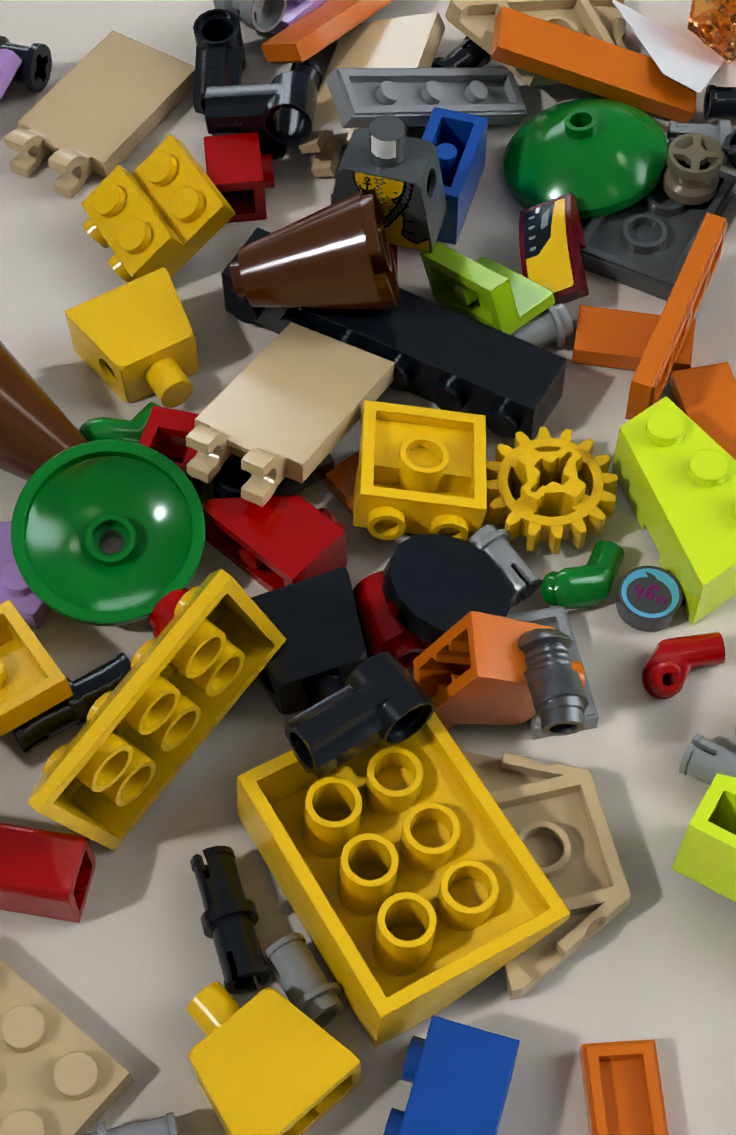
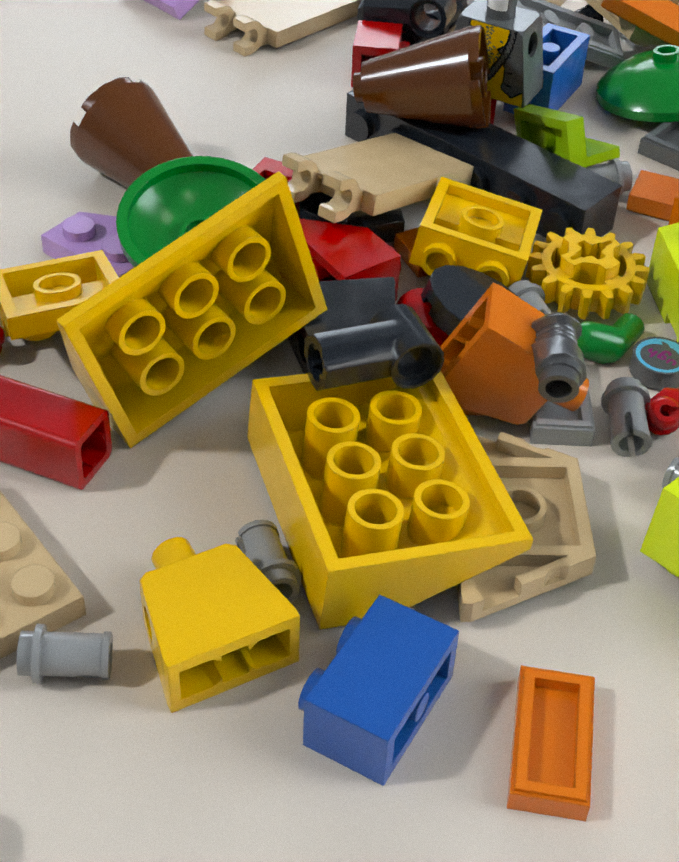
camera: 10 degrees right, 15 degrees down
(138, 339) = (264, 123): yellow torso -> none
(156, 212) = (305, 63): yellow plate -> none
(229, 920) = (214, 500): black pin -> none
(551, 248) = (629, 127): slope -> none
(627, 684) = (625, 404): none -> light grey pin

